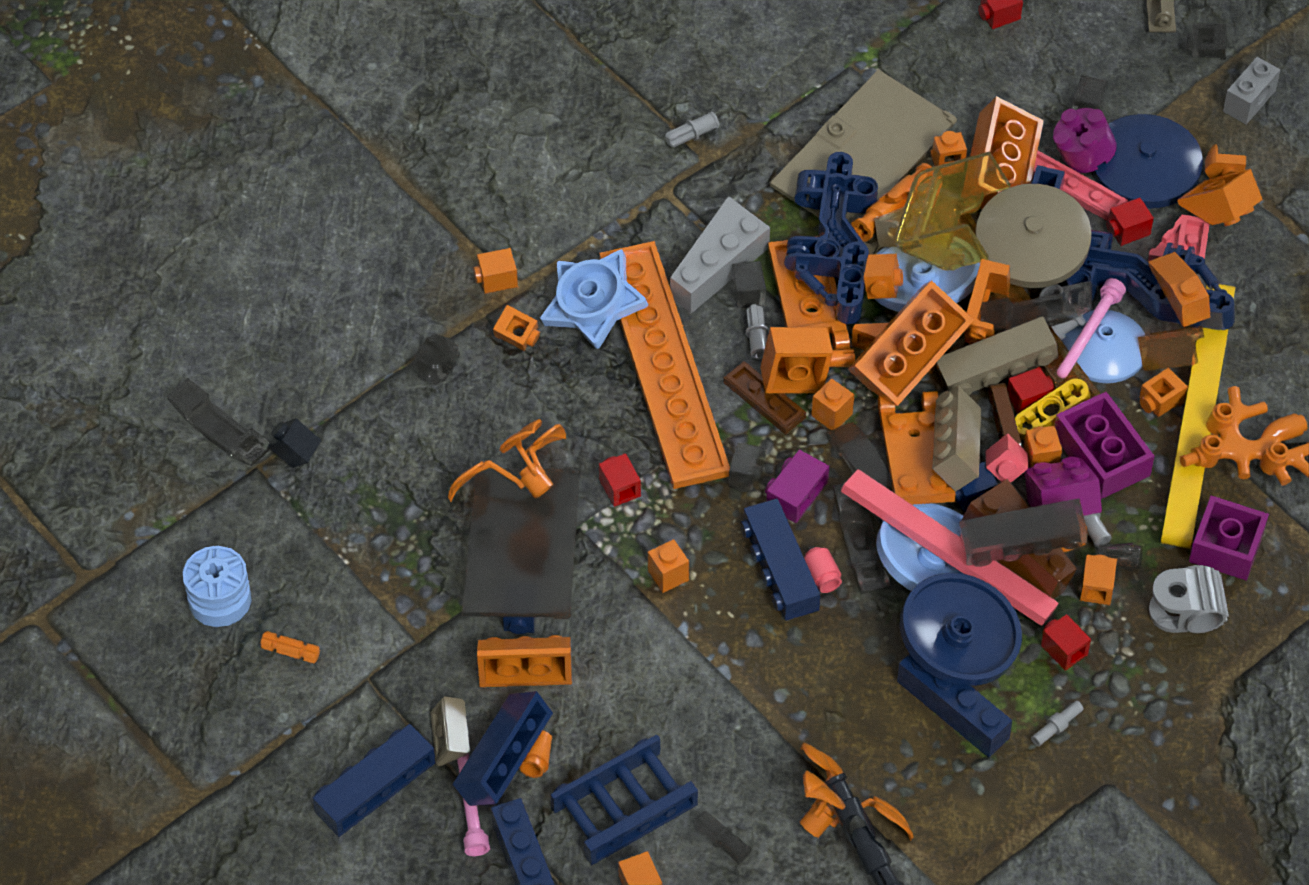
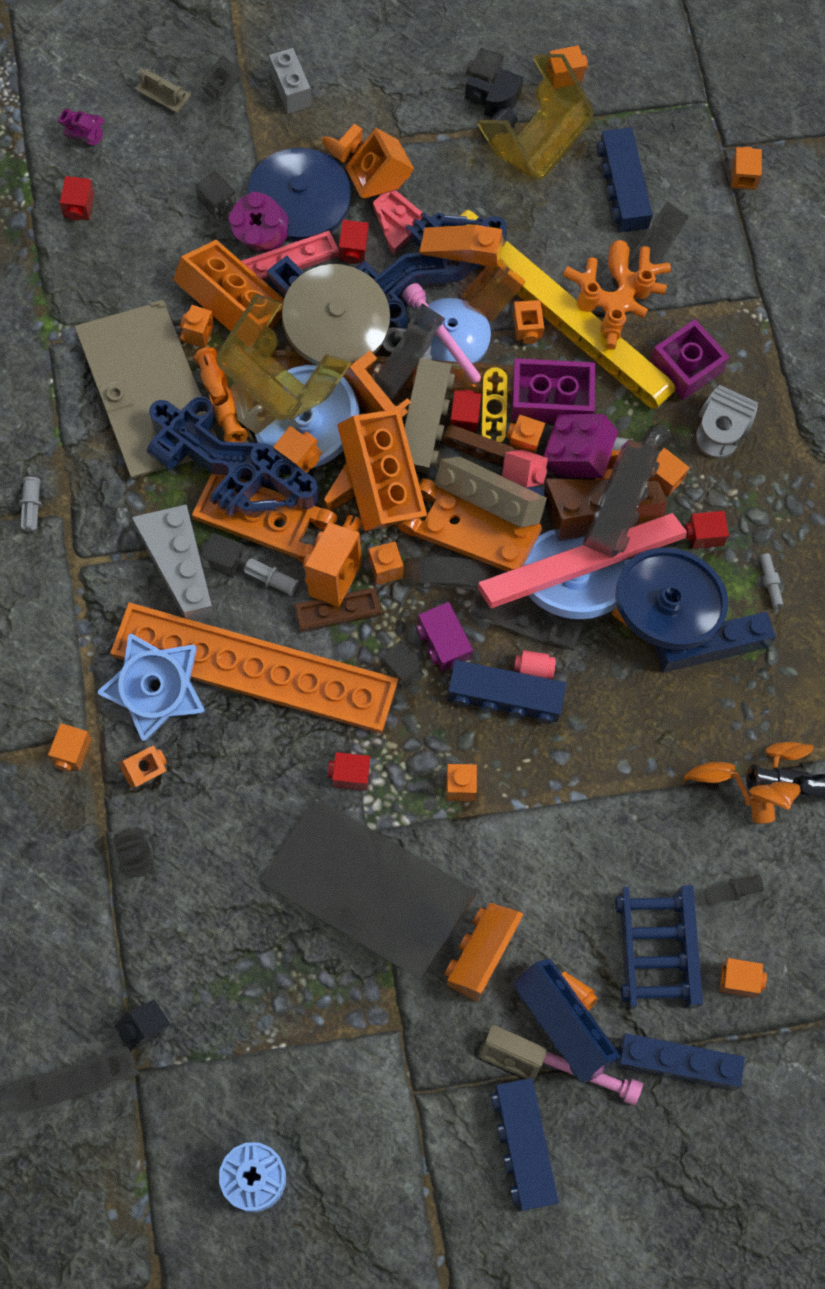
camera: 65 degrees left, 15 degrees up
(290, 647) = (345, 1143): orange axle -> none
(533, 474) = (302, 837): orange plant -> none

